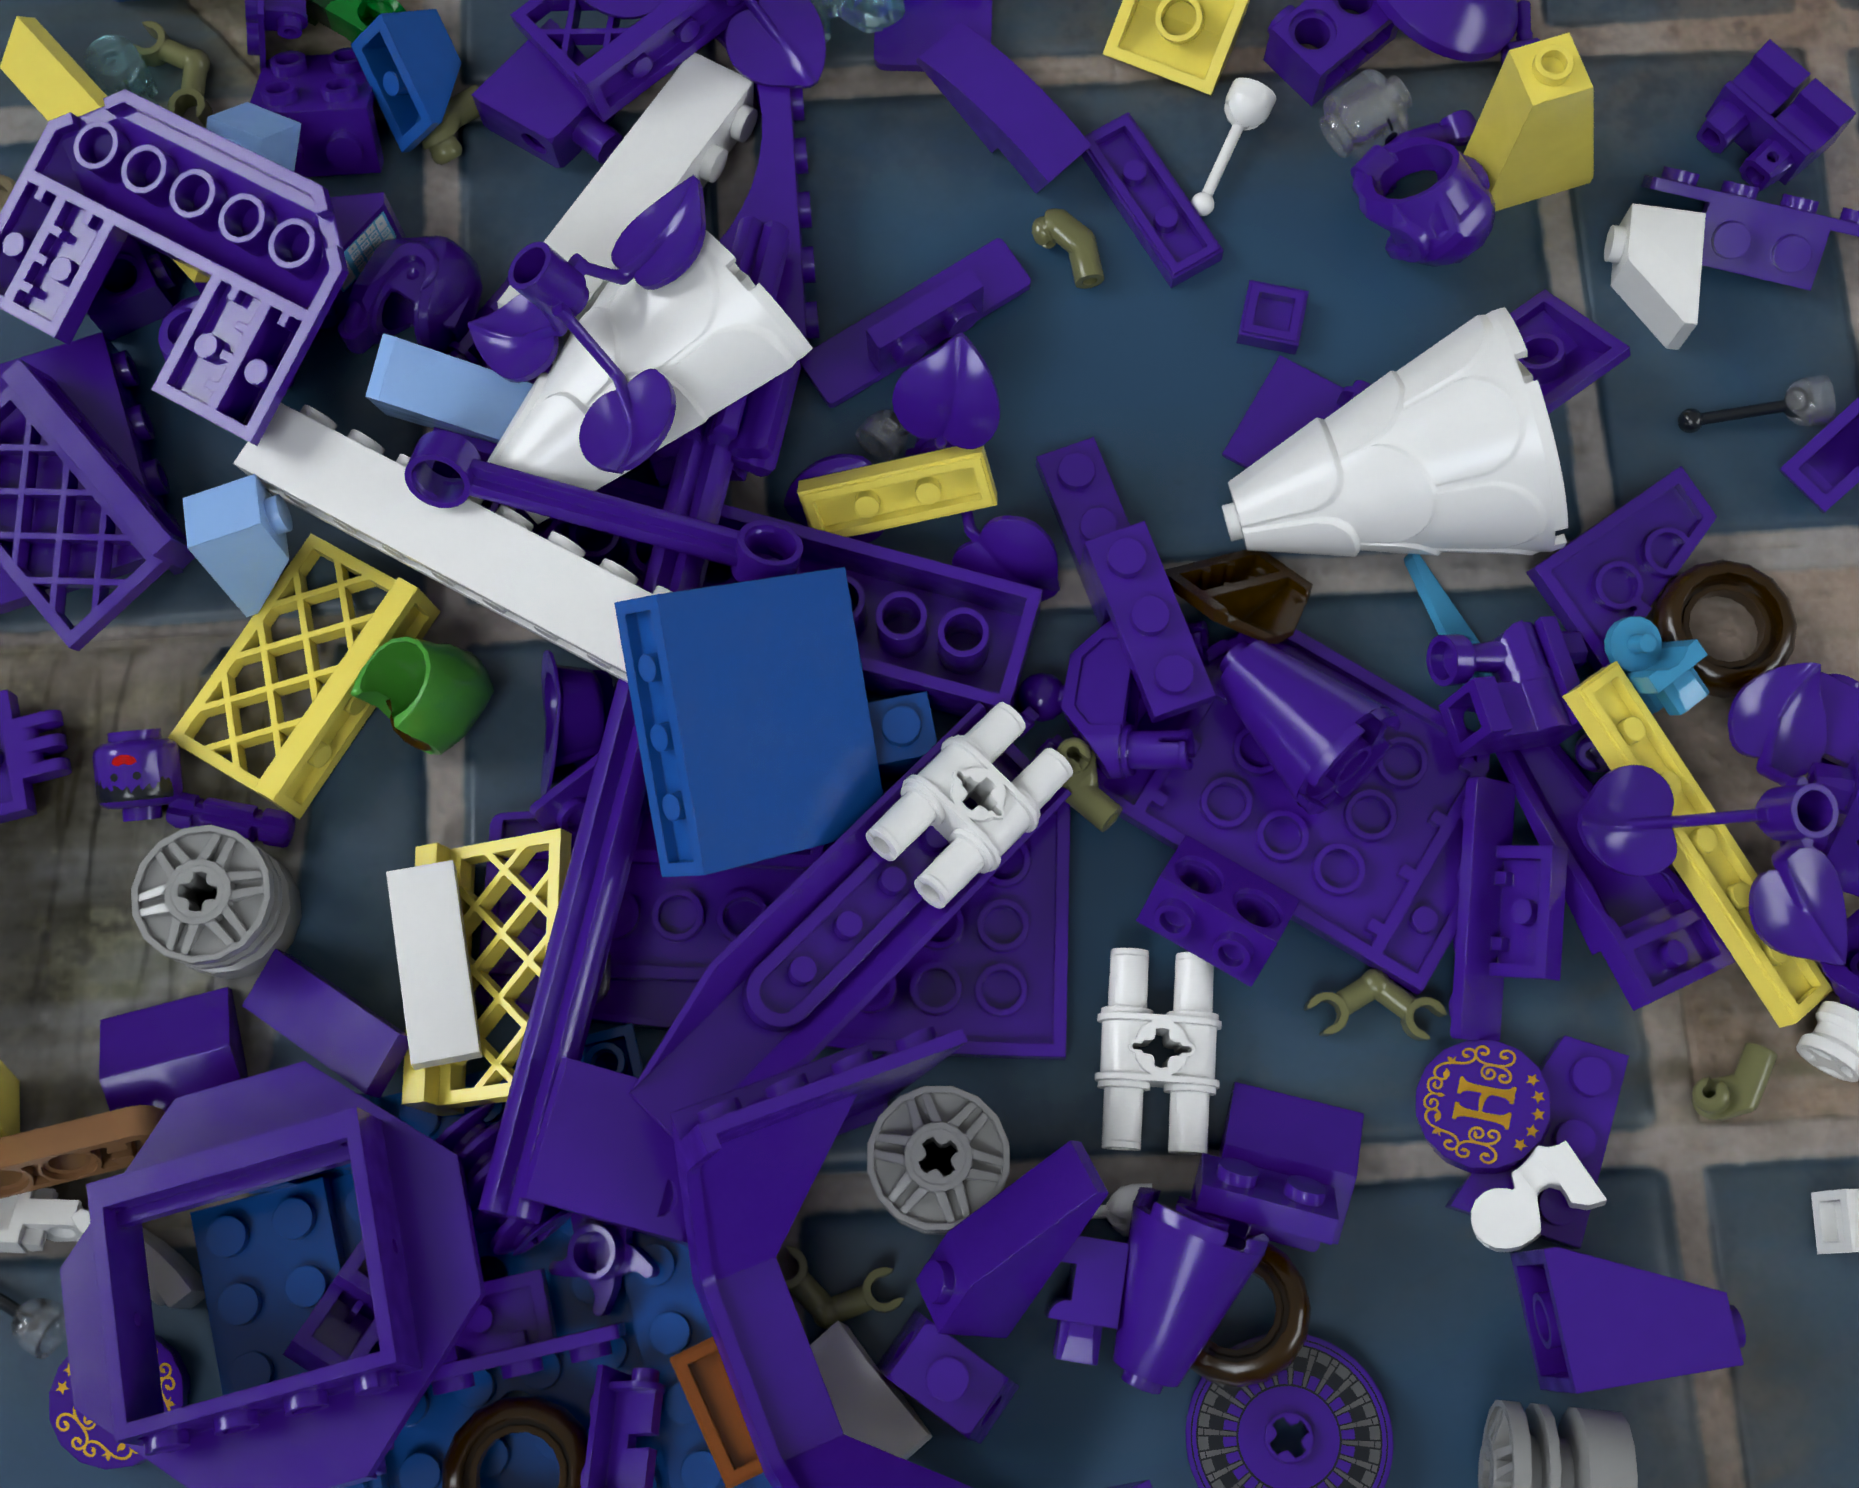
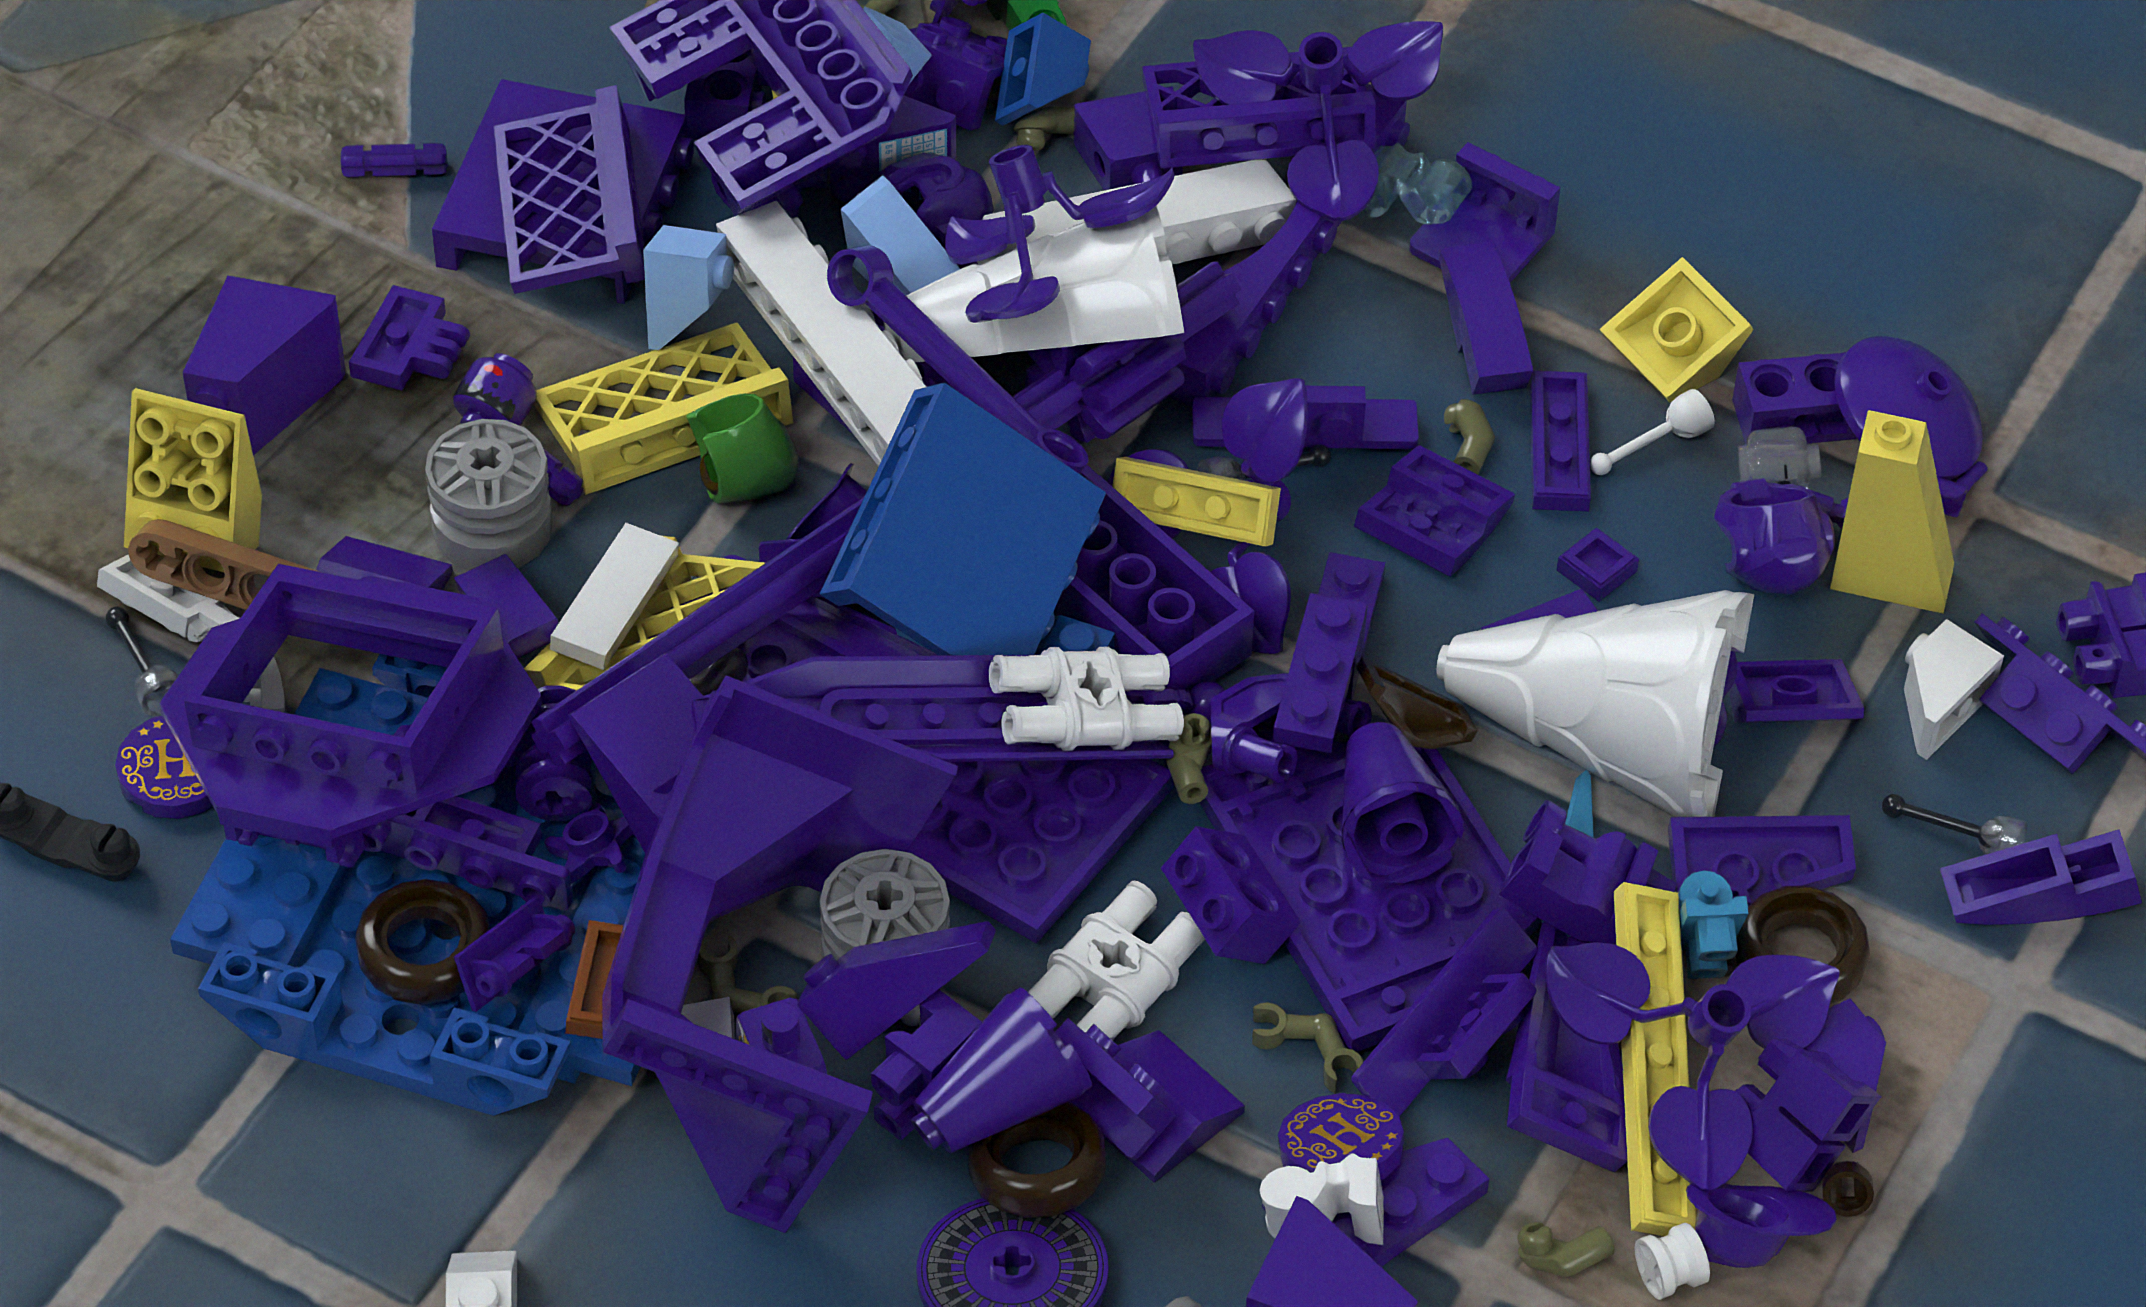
camera: 30 degrees right, 25 degrees down
(1094, 348) = (1434, 510): none -> dark purple slope

